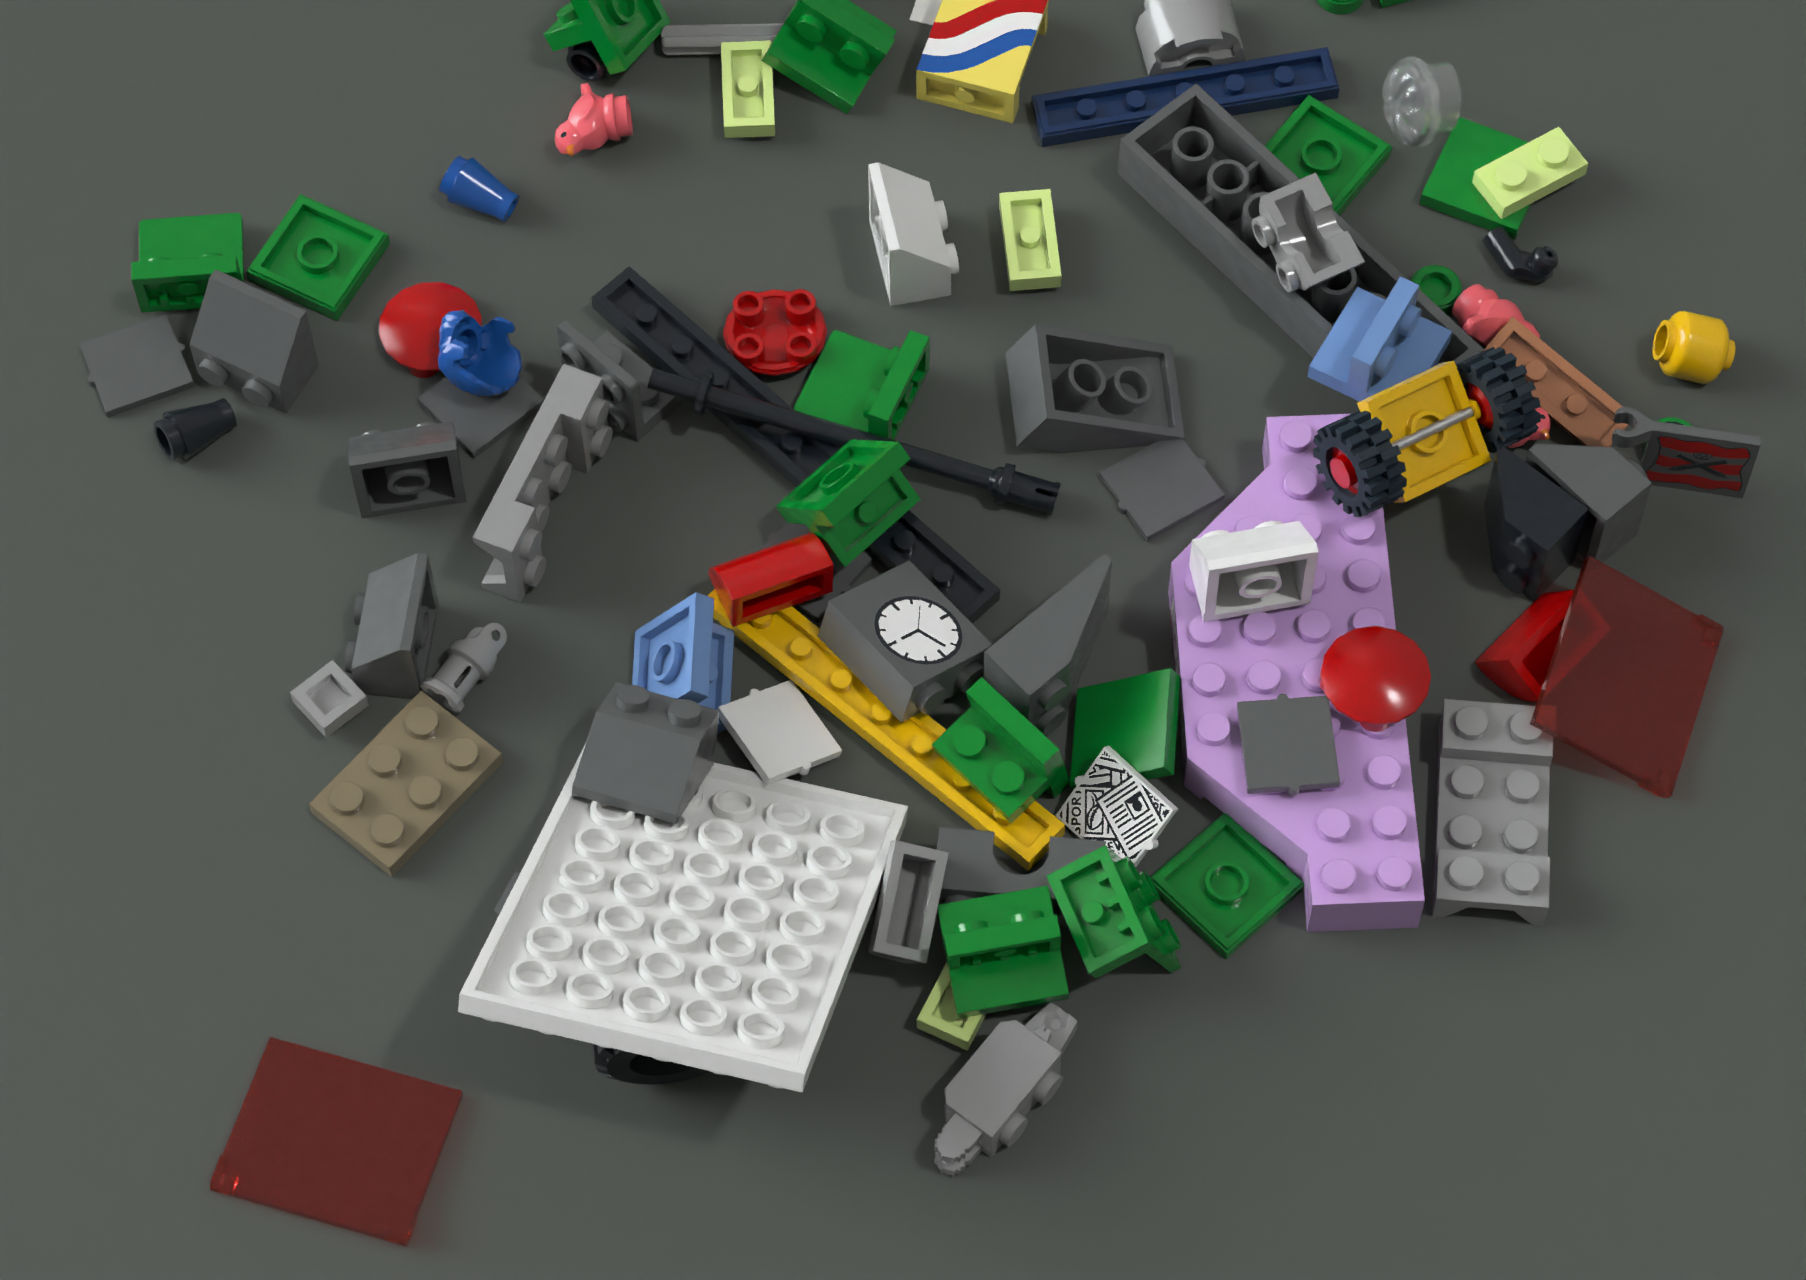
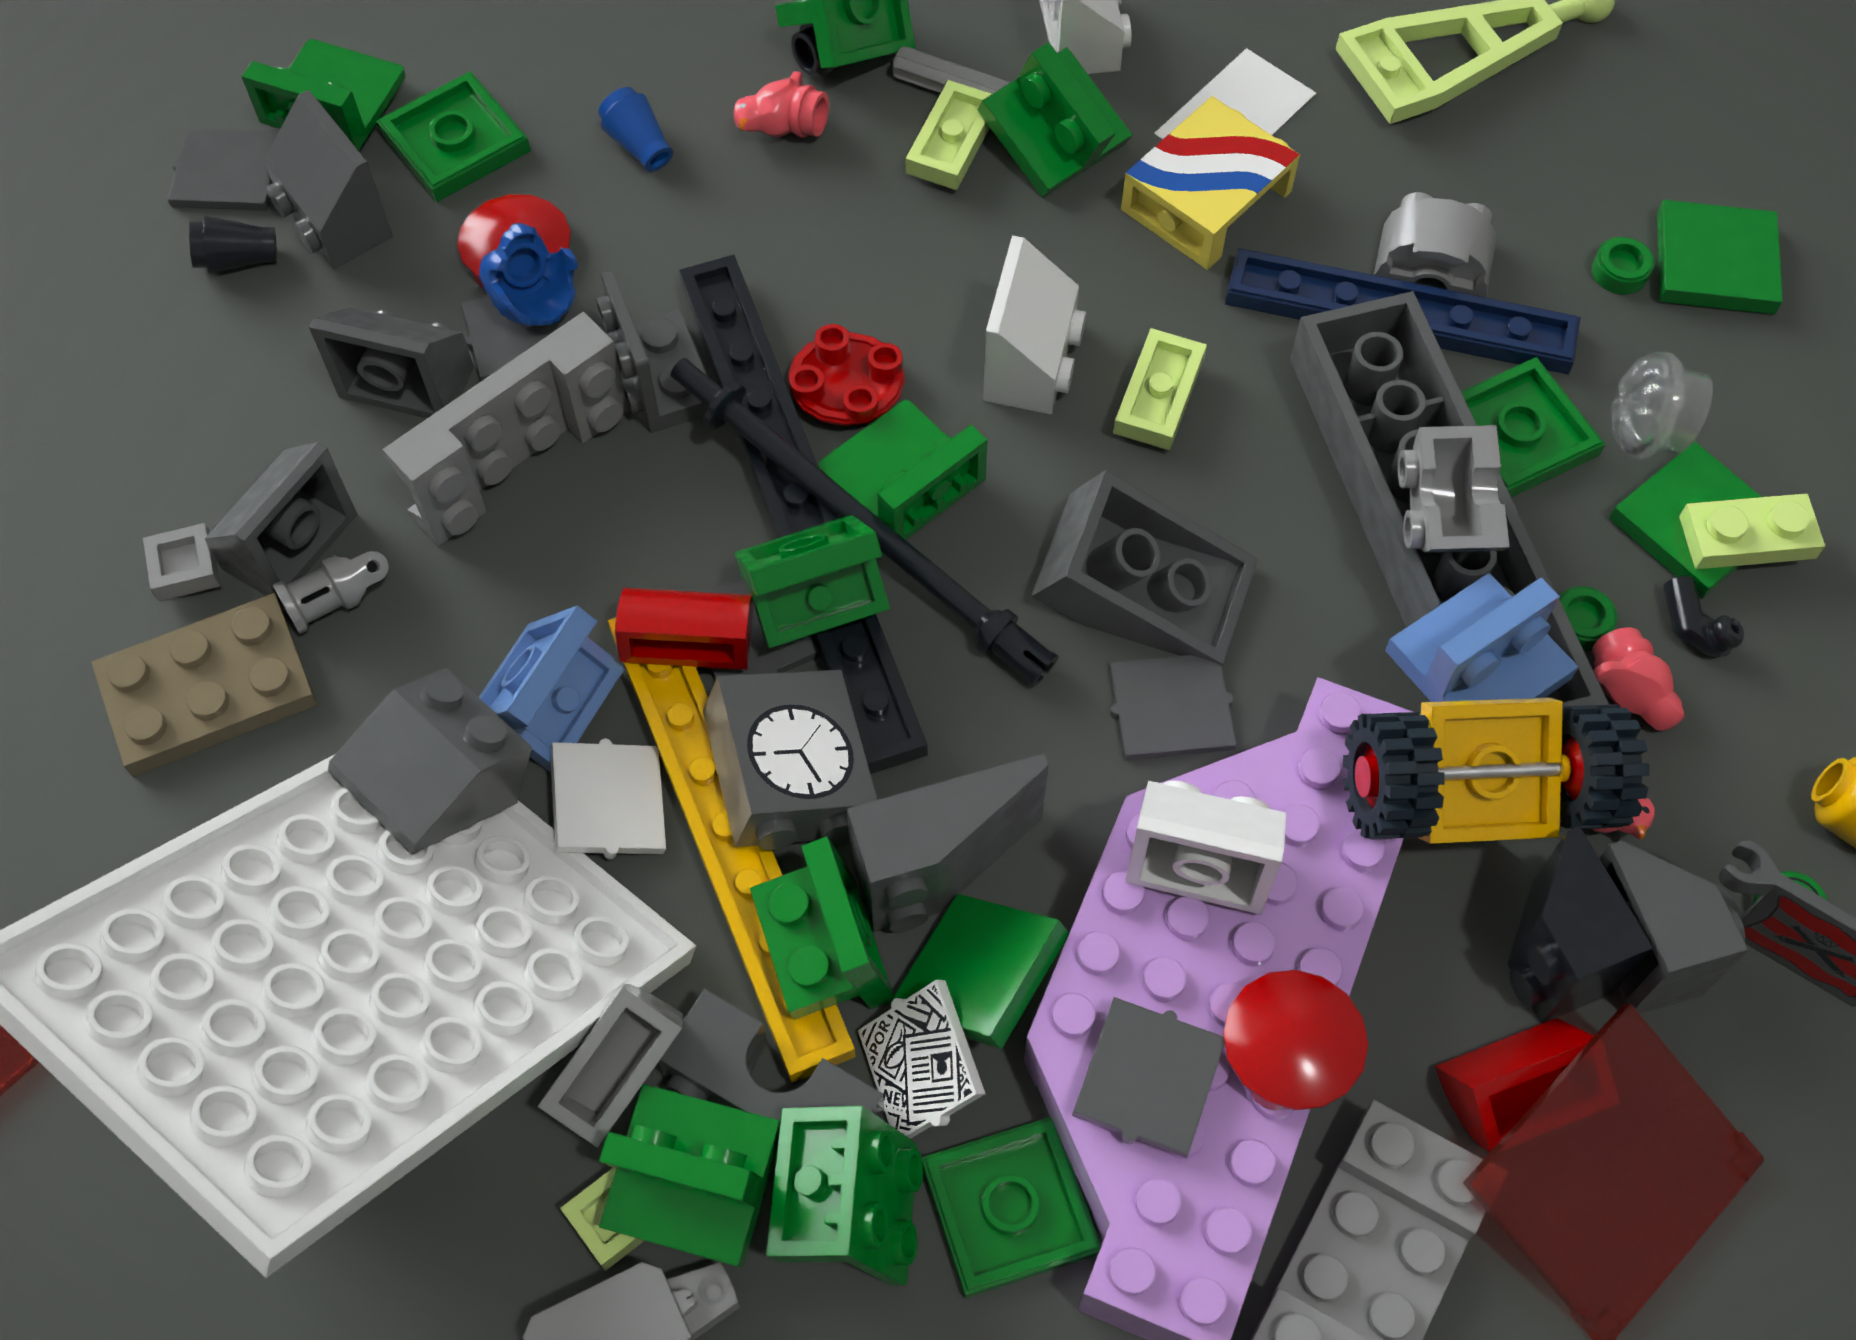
camera: 25 degrees right, 0 degrees up
(1563, 390) = (1683, 787): nougat plate -> none

